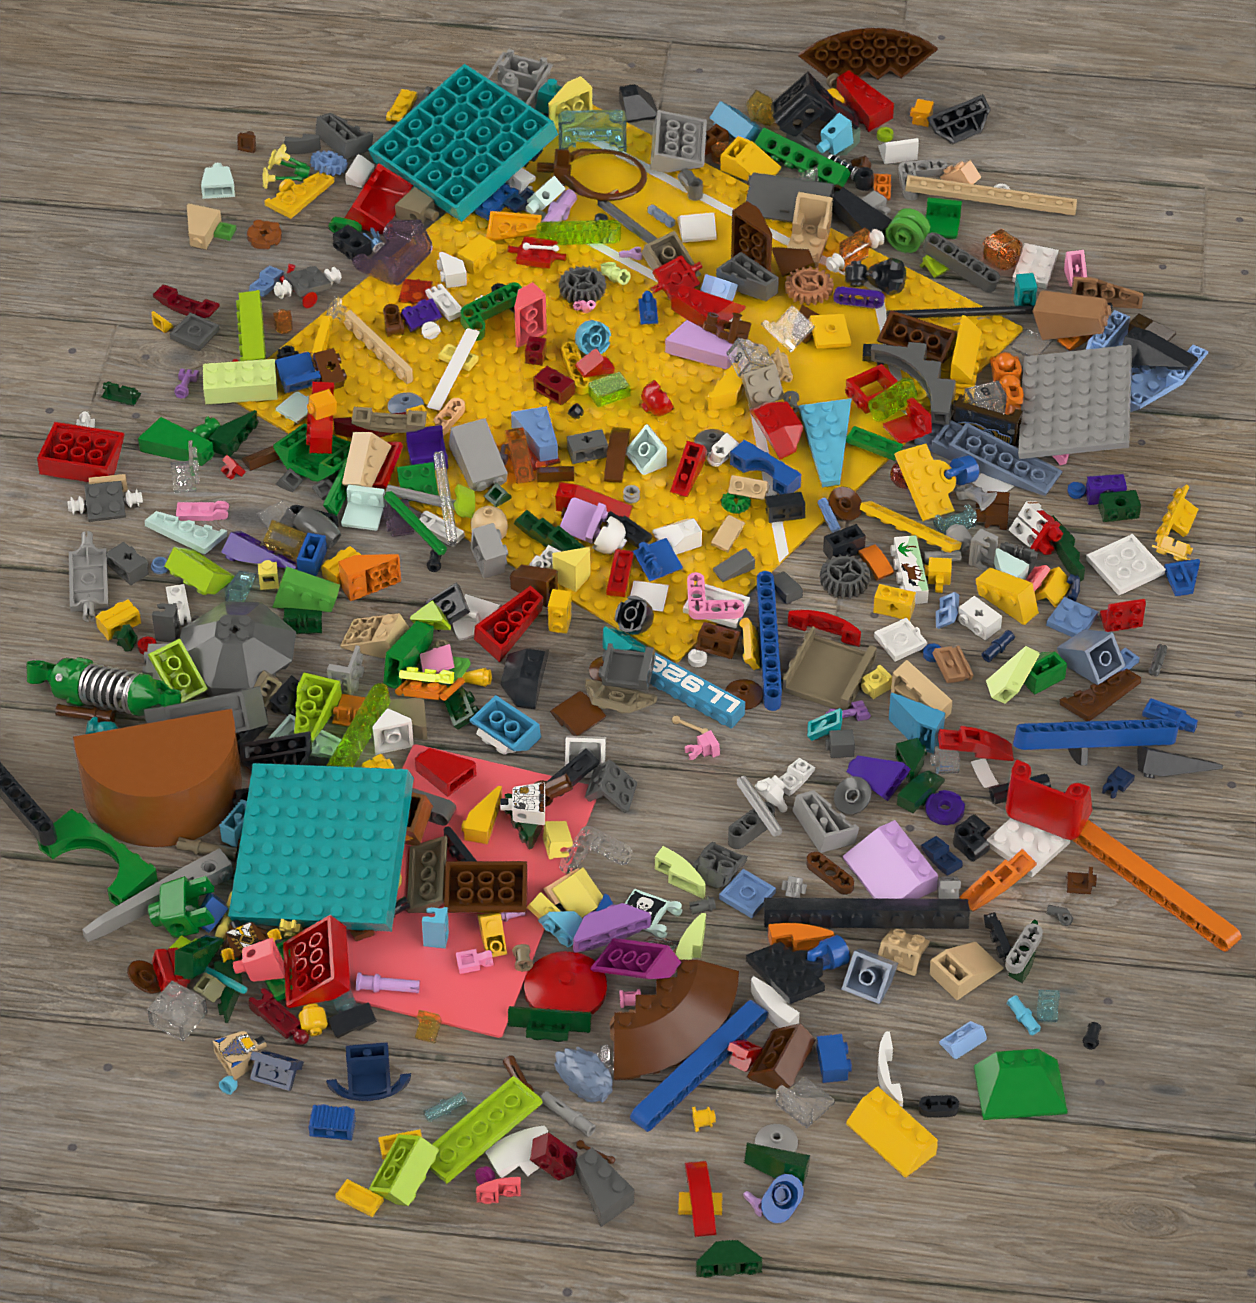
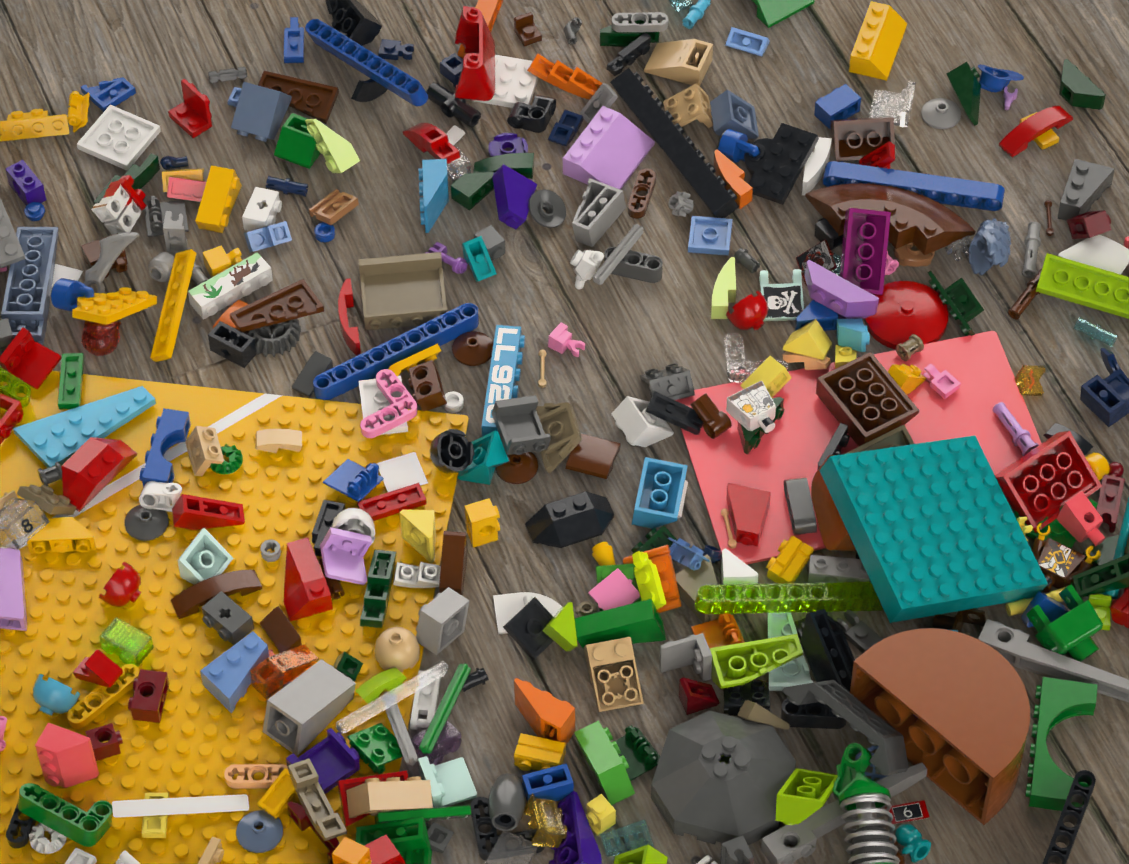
camera: 120 degrees left, 5 degrees up
(318, 663) = (696, 695): none -> dark red slope
(431, 739) = (713, 552): none -> dark blue plate
(435, 713) = (686, 556): none -> medium blue hinge
(436, 928) = (936, 412): medium azure hinge -> none
(482, 818) = (782, 453): yellow slope -> none
(508, 623) = (520, 561): red wedge -> none
(576, 411) = (181, 660): black hinge -> none
(640, 871) = (749, 312): none -> red cylinder
(681, 535) = (304, 480): white slope -> none
(692, 940) = (791, 245): yellowish green slope -> none
(703, 1118) = (963, 160): yellow brick -> none
(718, 865) = (694, 265): dark grey slope -> none
(735, 565) = (317, 417): dark grey slope -> none
(785, 507) = (211, 410): black hinge -> none
(796, 775) = (549, 265): white slope -> none
(828, 515) = (195, 378): medium blue axle -> none
(850, 501) = (171, 371): reddish brown dish -> none
(854, 576) = (281, 306): none -> reddish brown wing
(876, 682) = (394, 247): light yellow brick -> none
(885, 1055) = (805, 78): white slope -> none
(894, 602) = (282, 271): yellow brick -> none
(900, 639) = (326, 257): white plate -> none
(915, 686) = (393, 210): tan wedge -> none
(938, 1106) = (828, 28): black beam -> none
(966, 518) = (137, 278): clear light blue hinge -> none
(1011, 565) = (188, 204): light aqua slope -> none
(1071, 617) = (212, 150): medium blue plate -> none
(1119, 506) = (44, 166): dark green brick -> none

